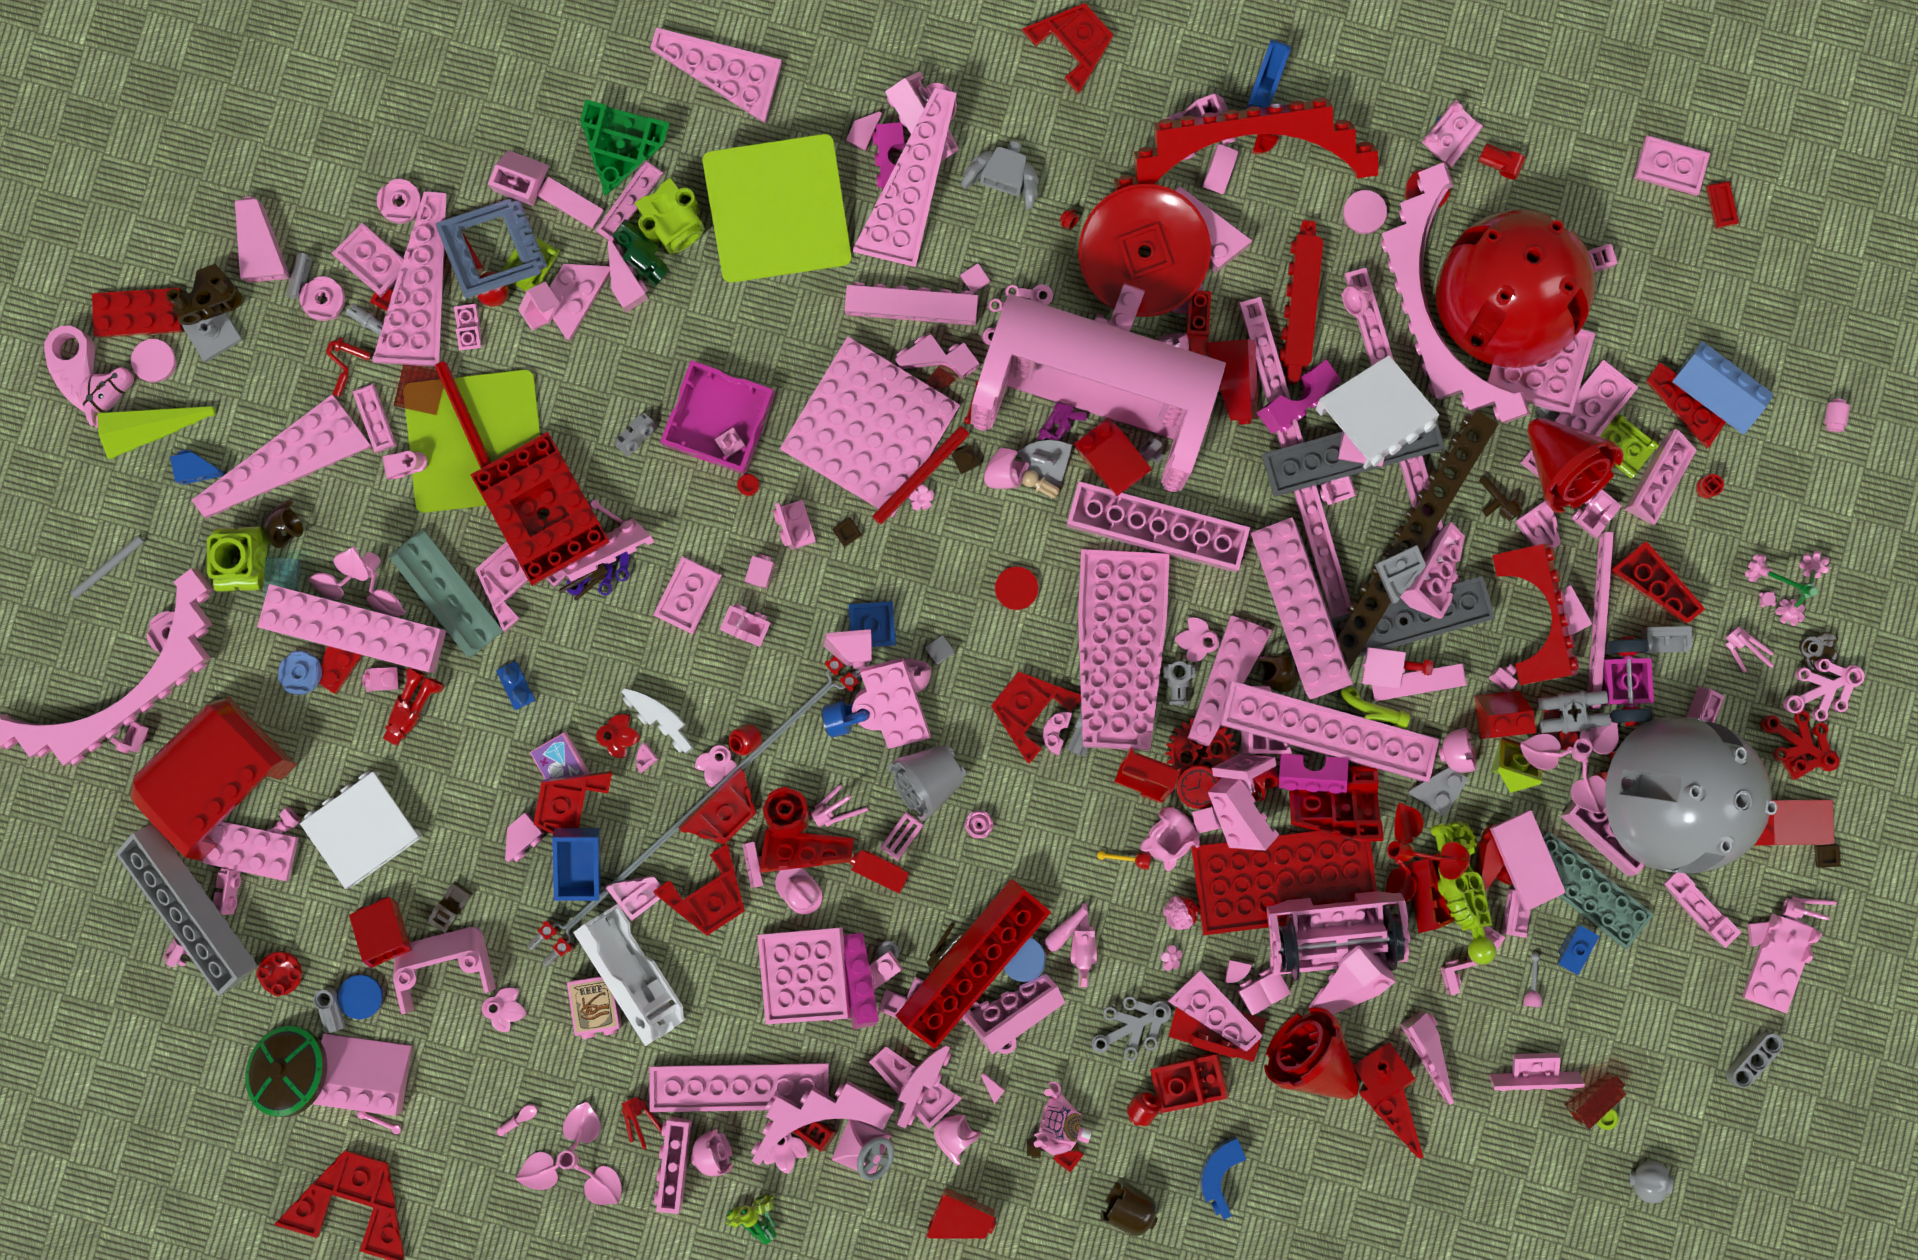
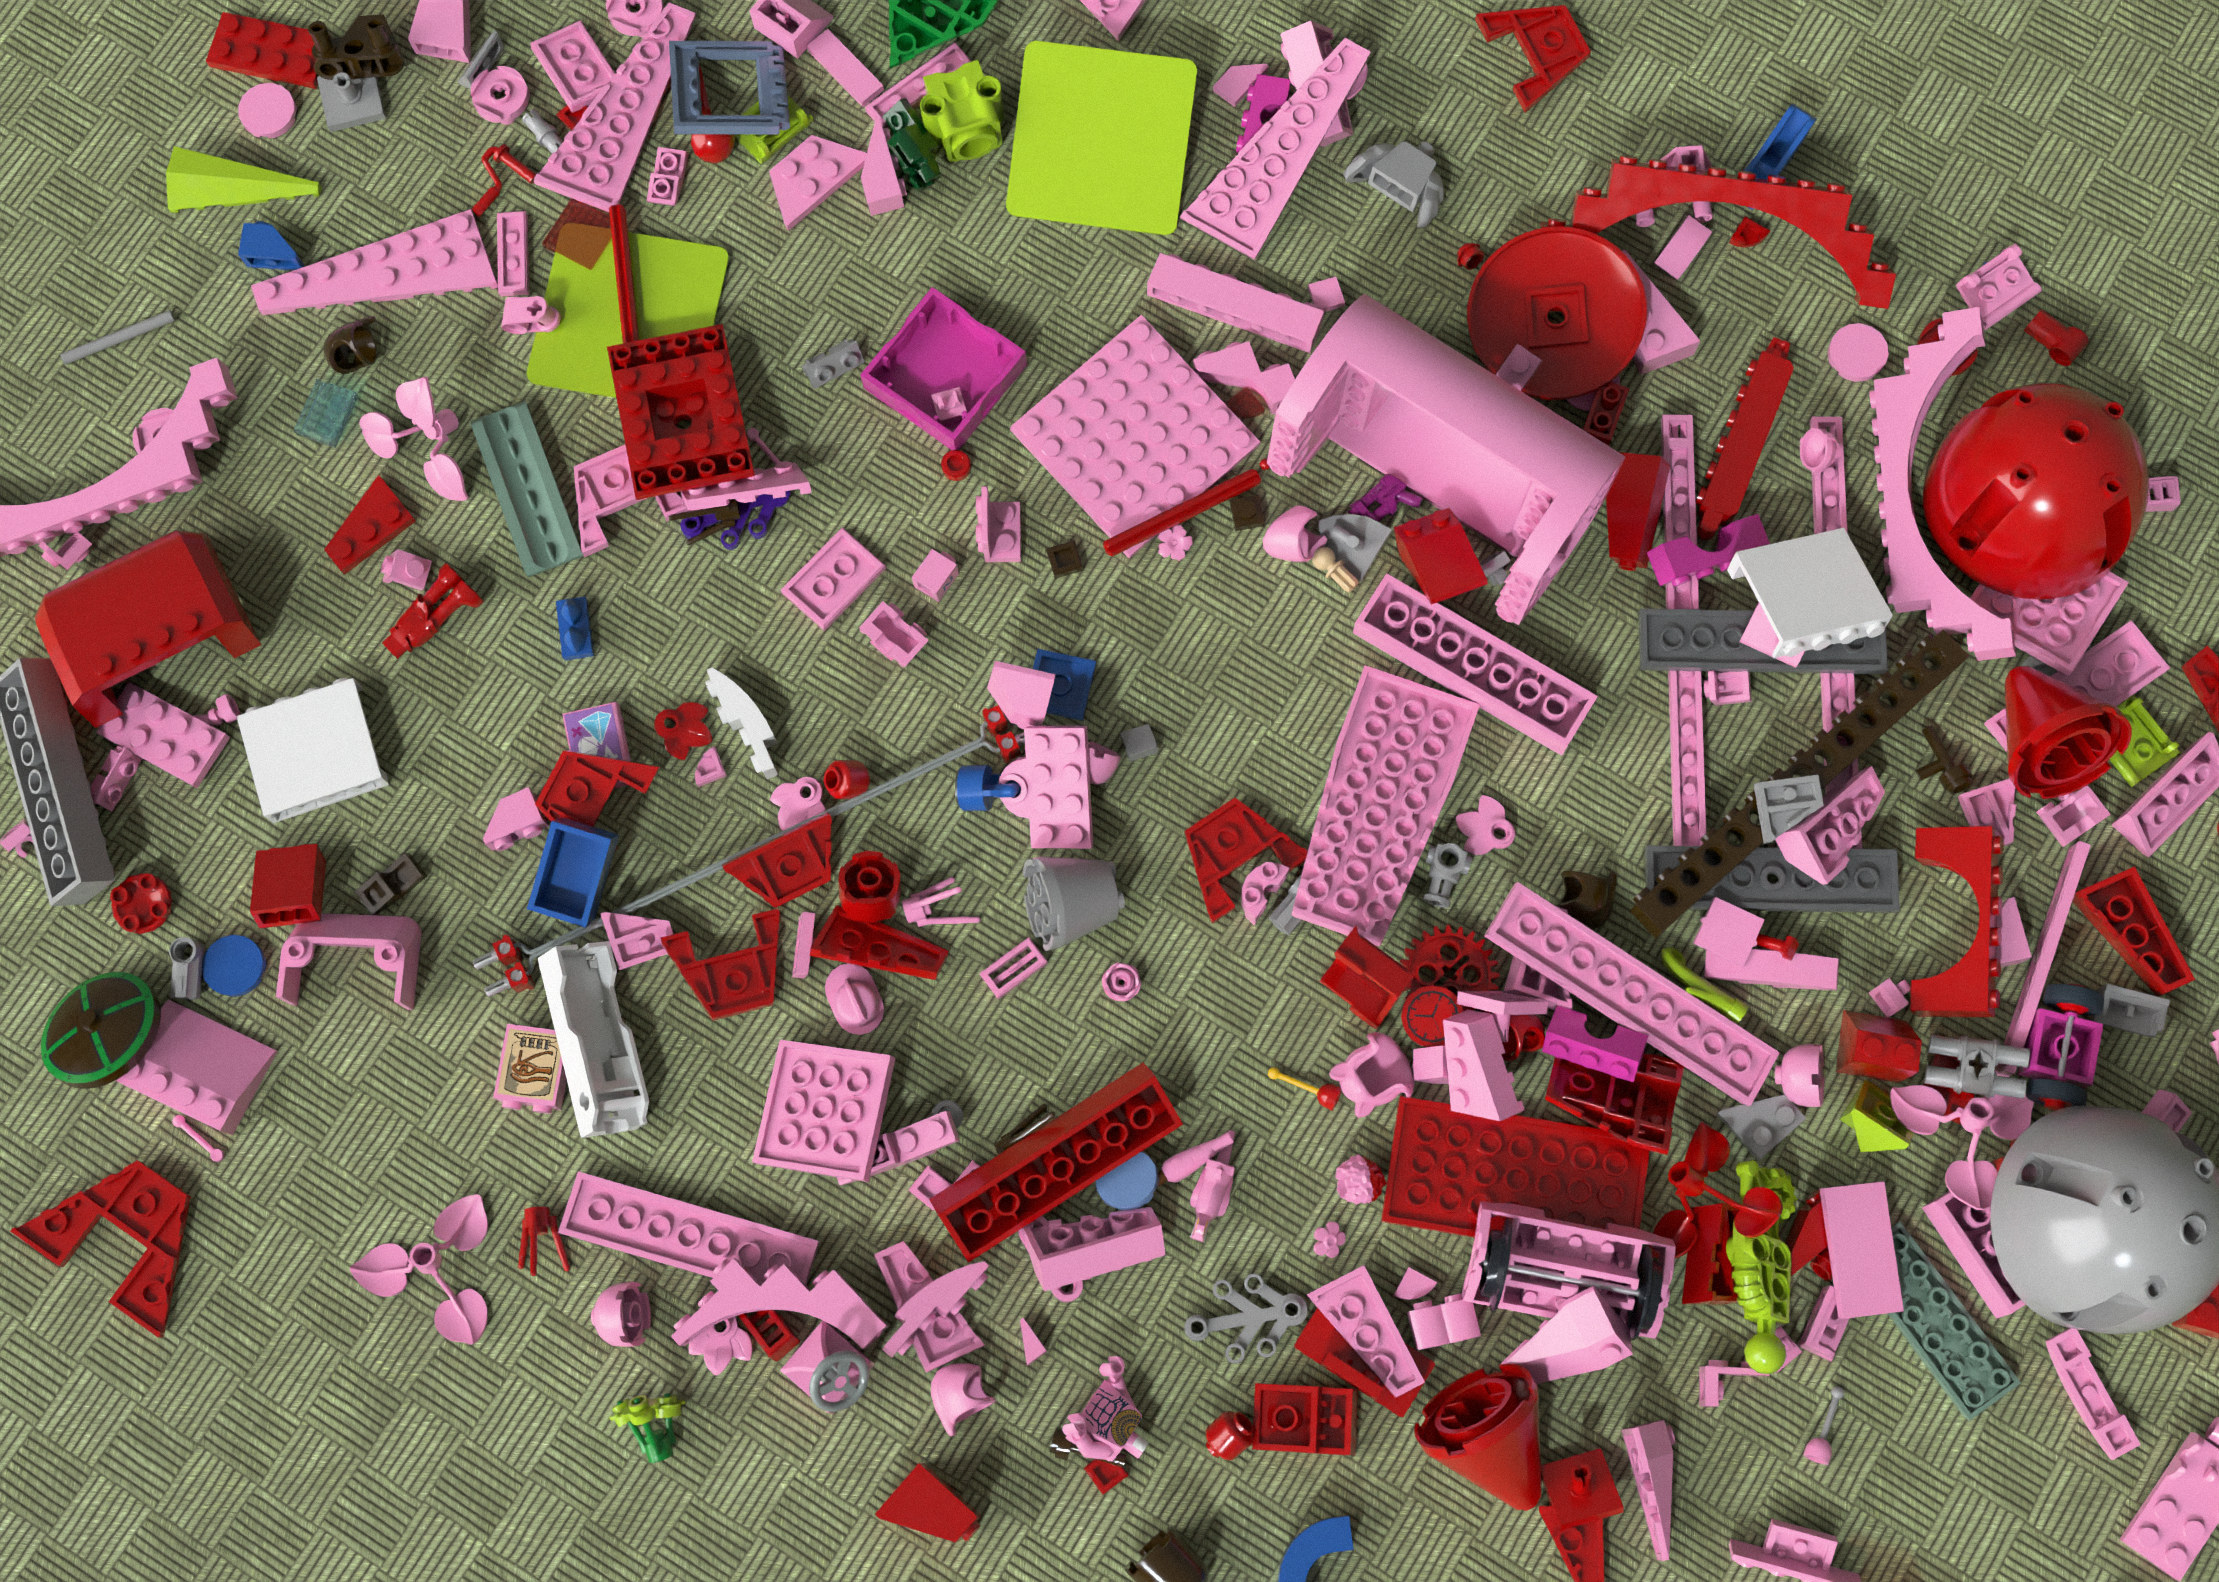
camera: 15 degrees right, 10 degrees down
(76, 376) = (167, 99): bright pink animal -> none
(249, 571) = (279, 365): lime piece -> none
(300, 673) = (307, 532): medium blue tile -> none
(351, 628) = (391, 492): bright pink brick -> none
(506, 1011) = (418, 1039): bright pink plate -> none
(525, 1114) = (393, 1186): bright pink piece -> none
(538, 306) = (763, 171): bright pink panel -> none
(674, 1165) = (565, 1314): bright pink brick -> none
(859, 980) = (894, 1141): dark pink arch -> none
(879, 870) = (969, 1000): red window -> none
(1016, 588) = (1264, 692): red tile -> none
(1233, 662) = (1533, 860): bright pink wing -> none
(1301, 608) = (1638, 818): bright pink brick -> none
(1576, 949) = (1900, 1395): blue brick -> none
(1757, 932) = (2162, 1454): bright pink tile -> none

